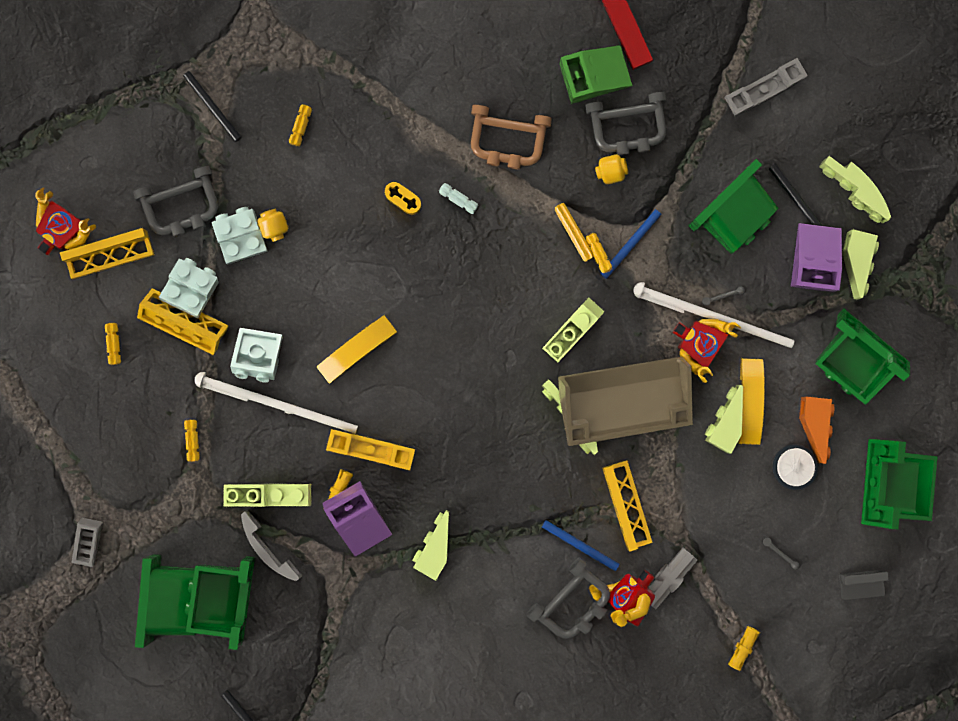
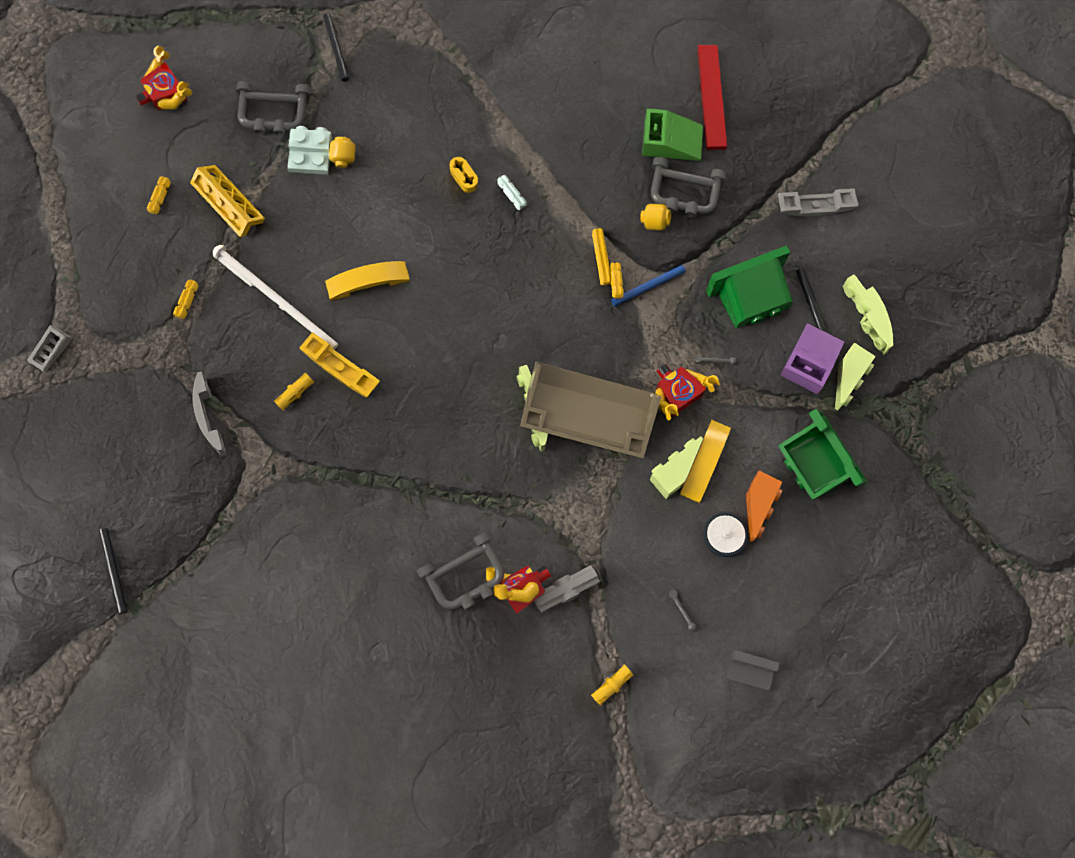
camera: 20 degrees right, 15 degrees down
(102, 246) = (191, 115): yellow fence -> none
(162, 600) = (92, 423): green windscreen -> none
(189, 287) = (246, 173): light aqua plate -> none
(220, 601) = (143, 438): green windscreen -> none
(256, 354) = (276, 249): light aqua plate -> none
(267, 495) = (229, 369): yellowish green slope -> none
(300, 125) = (402, 87): yellow axle -> none
(356, 519) = (299, 419): medium lavender slope -> none
(434, 554) = (356, 478): yellowish green slope -> none
(514, 161) = (573, 180): medium nougat bar -> none
(573, 329) = (568, 334): yellowish green slope -> none
(580, 545) = (494, 527): blue bar -> none
(621, 511) = (545, 507): yellow fence -> none
(680, 305) = (670, 351): white bar -> none
(897, 485) = (819, 585): green windscreen -> none

